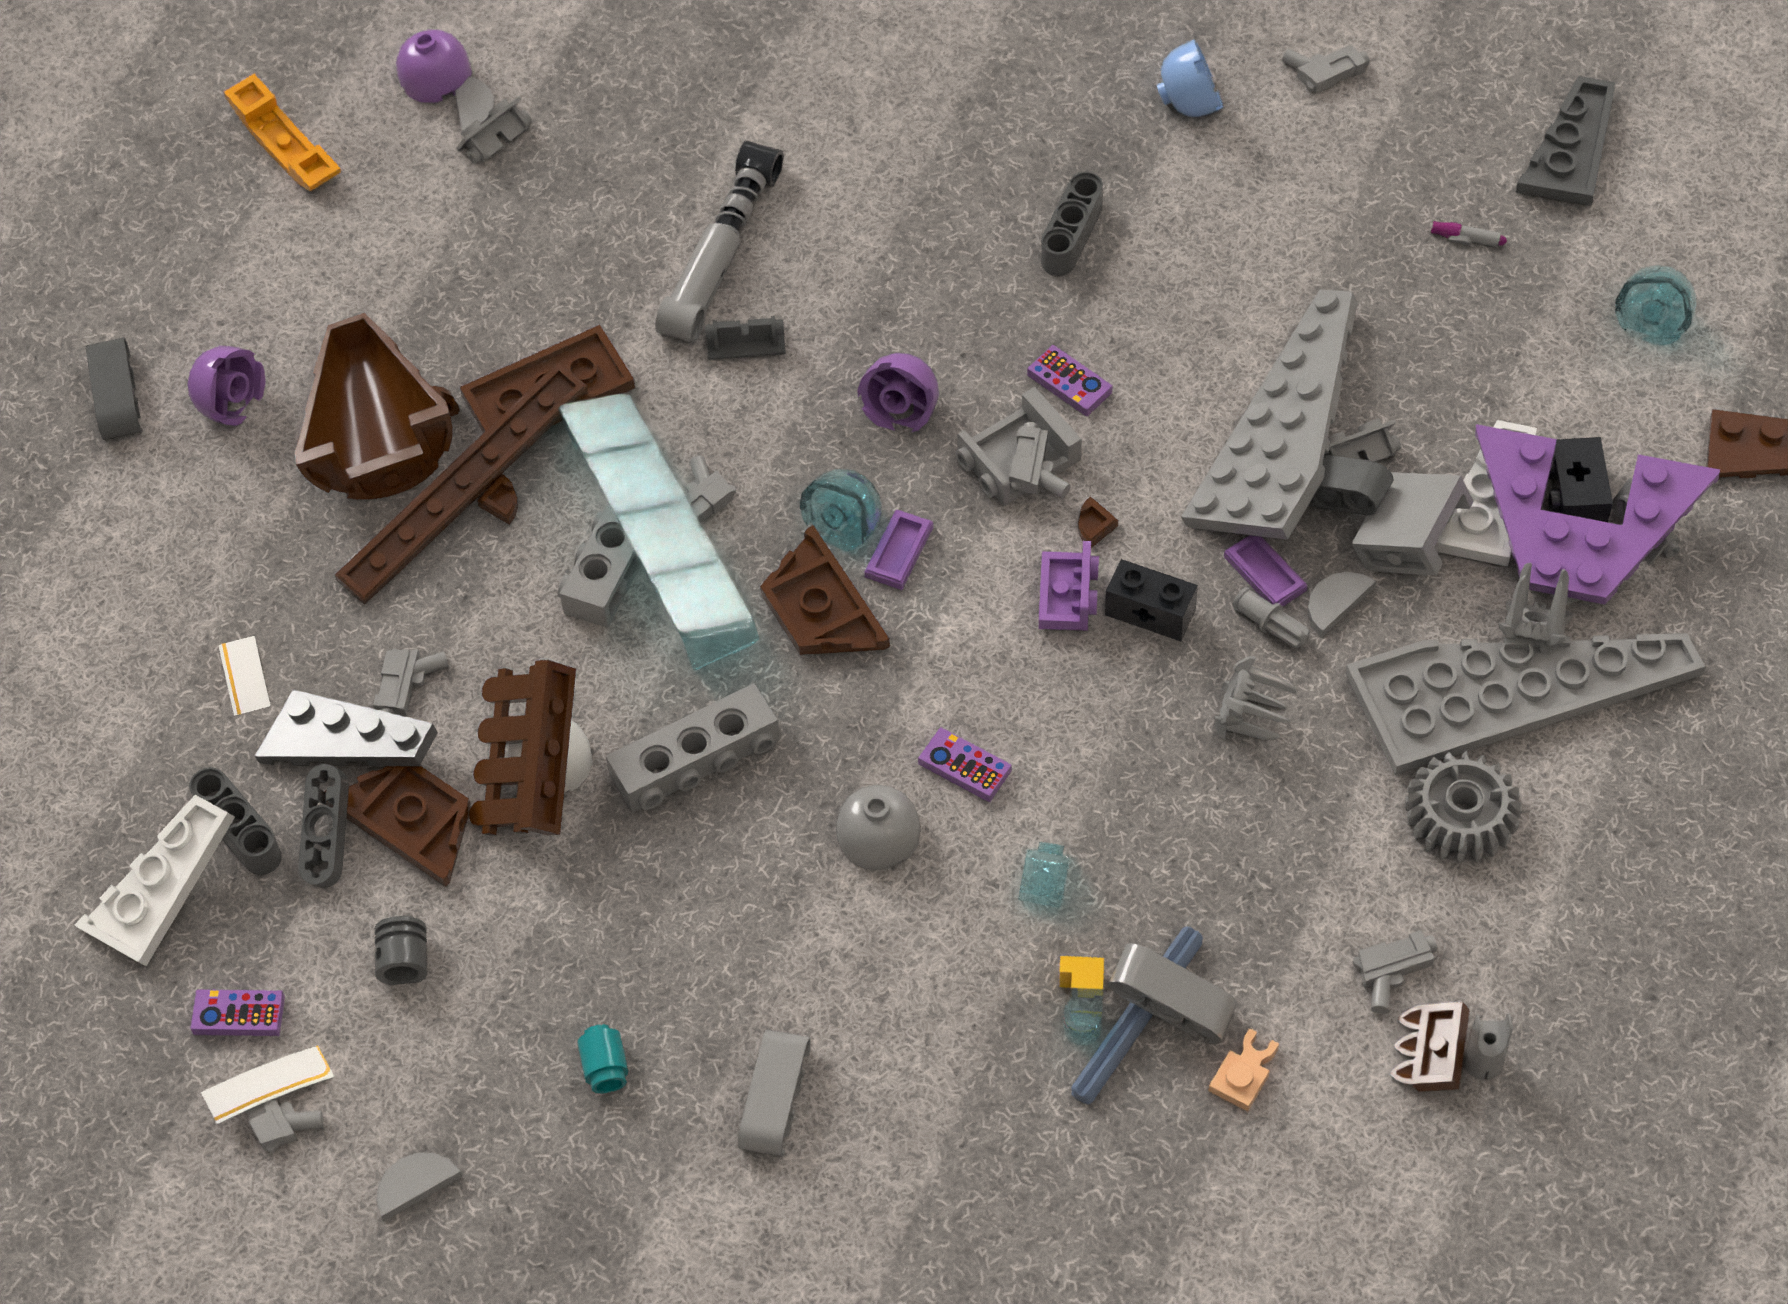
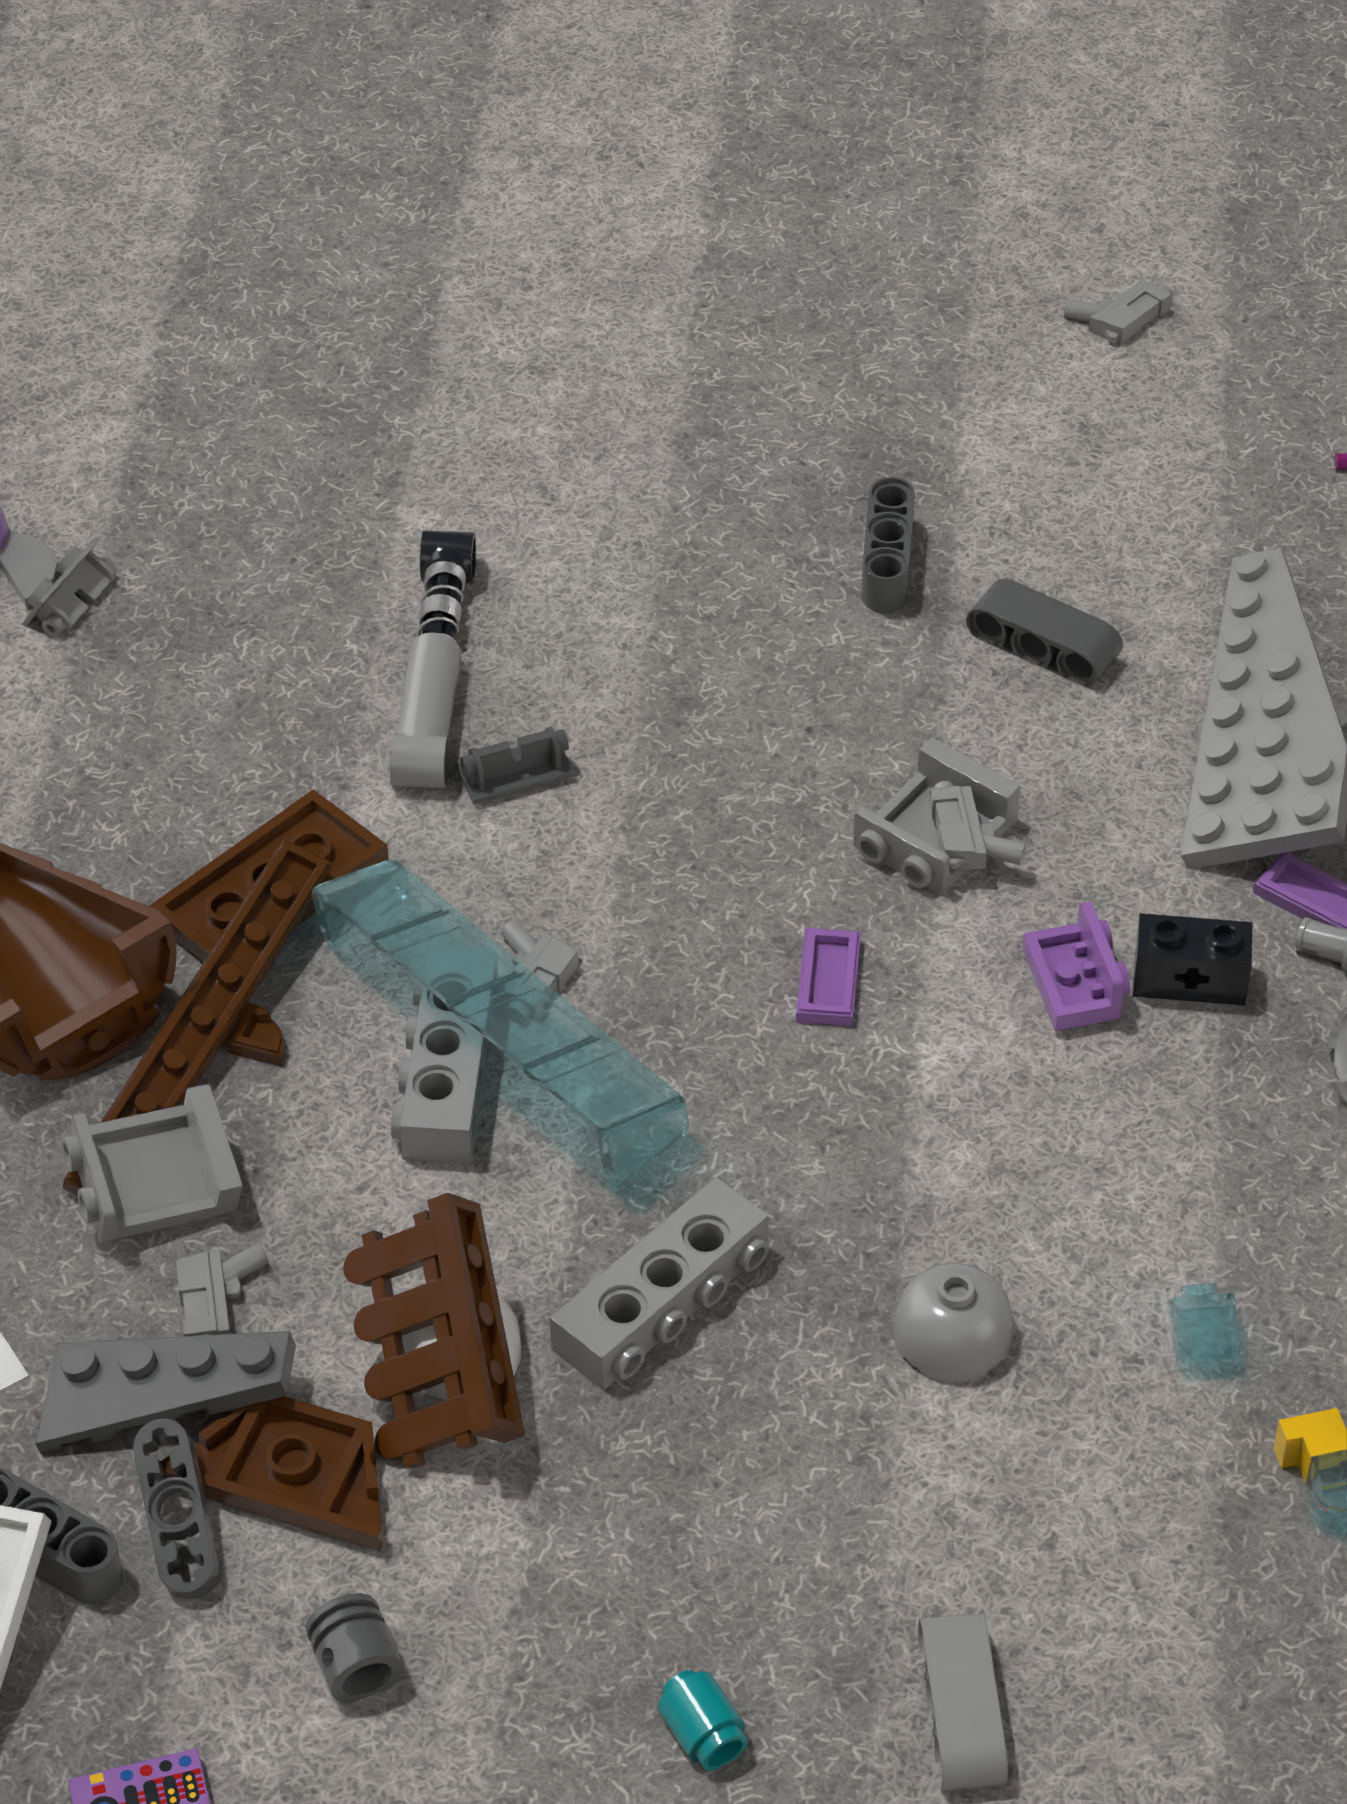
camera: 20 degrees left, 10 degrees down
(390, 581) = (153, 1168): none -> light grey panel
(820, 603) = (755, 1064): reddish brown wing -> none
(838, 501) = (734, 929): clear light blue cylinder -> none
(895, 384) = (750, 775): medium lavender cylinder -> none
(964, 764) = (1033, 1219): medium lavender tile -> none
(1069, 380) = (963, 727): medium lavender tile -> none
(1095, 522) = (1070, 887): reddish brown tile -> none
(1157, 317) = (1045, 630): none -> dark grey beam
(1188, 82) = (967, 355): light blue cylinder -> none

